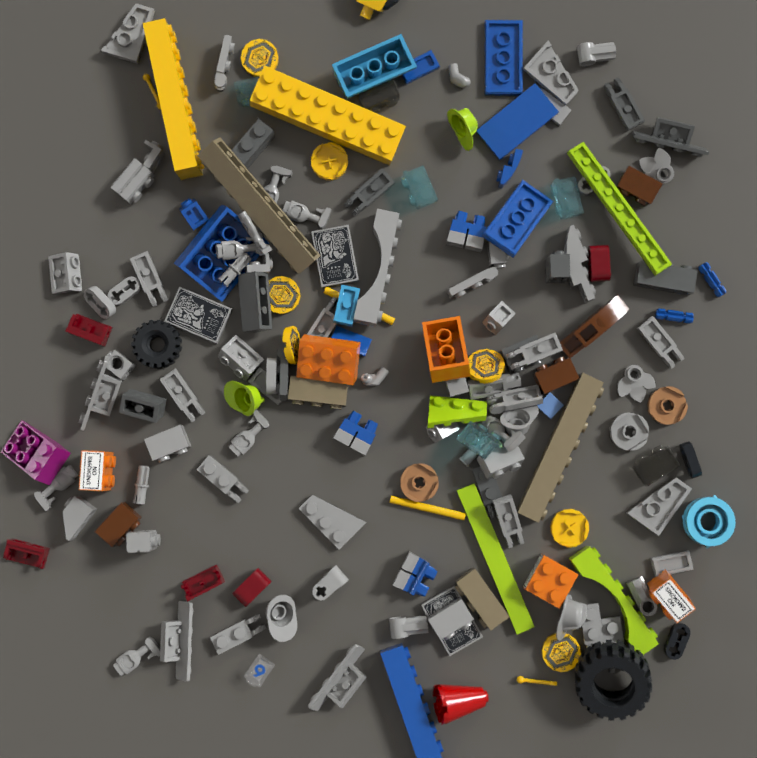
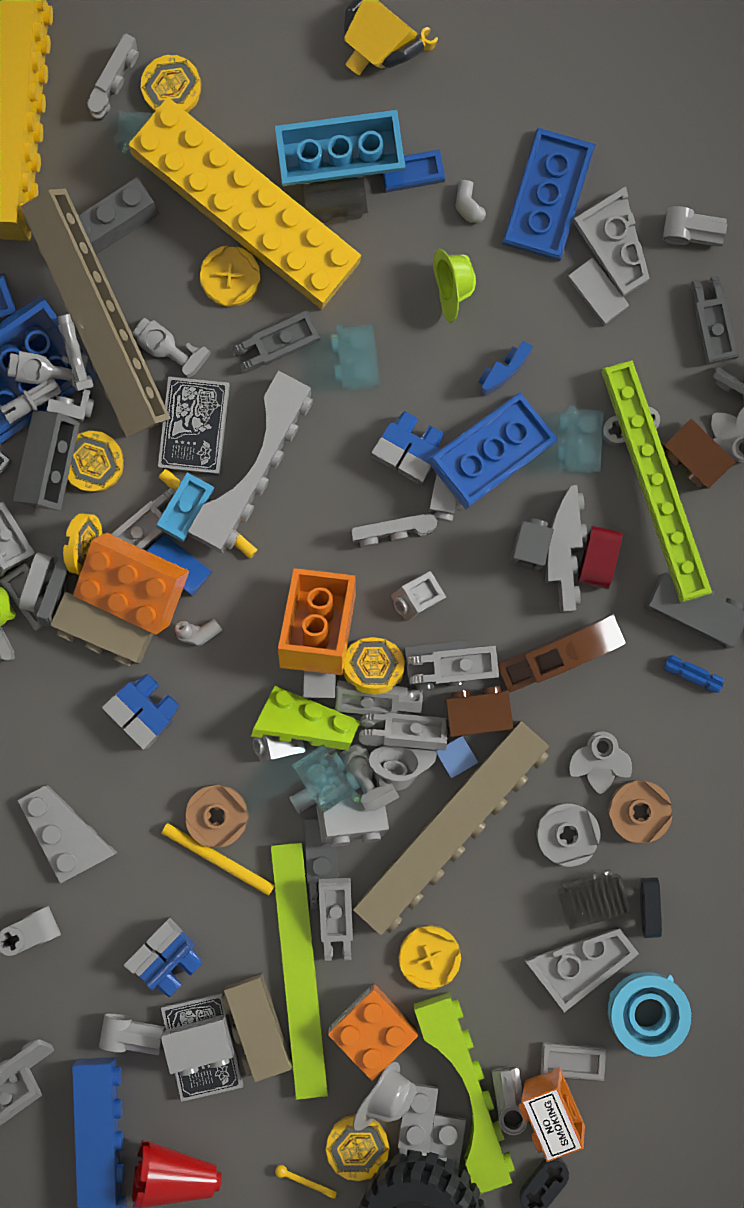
camera: 20 degrees right, 0 degrees up
(272, 189) = (127, 294): light grey piece -> none
(517, 121) = (539, 299): blue tile -> none
(660, 341) = (658, 706): light grey hinge -> none

